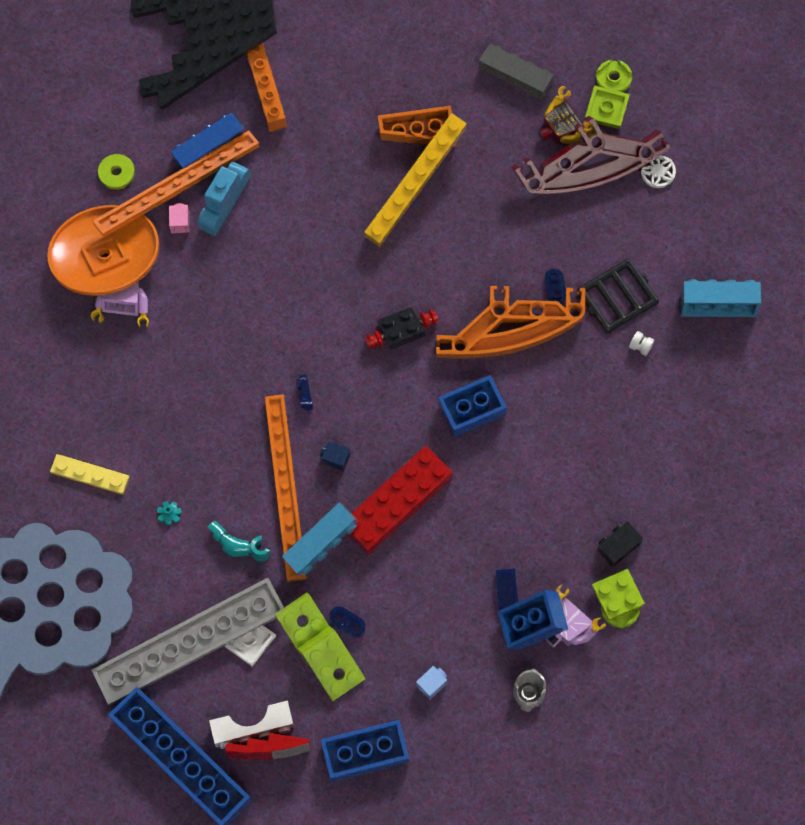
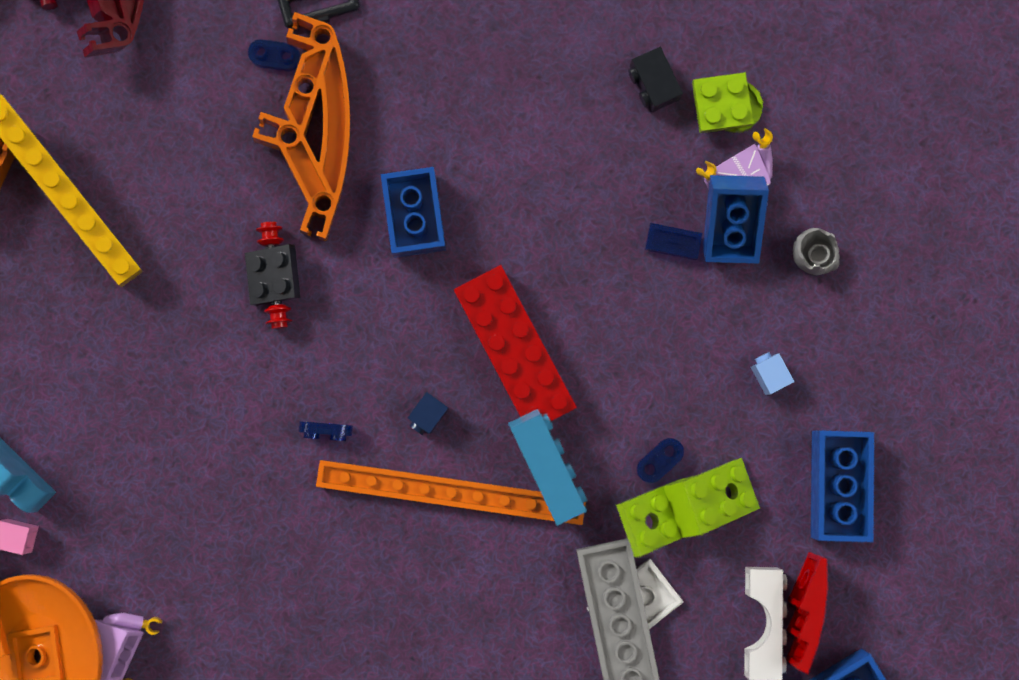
camera: 80 degrees left, 15 degrees up
(169, 513) = (443, 653): teal plant -> none
(237, 547) = (514, 584): teal piece -> none

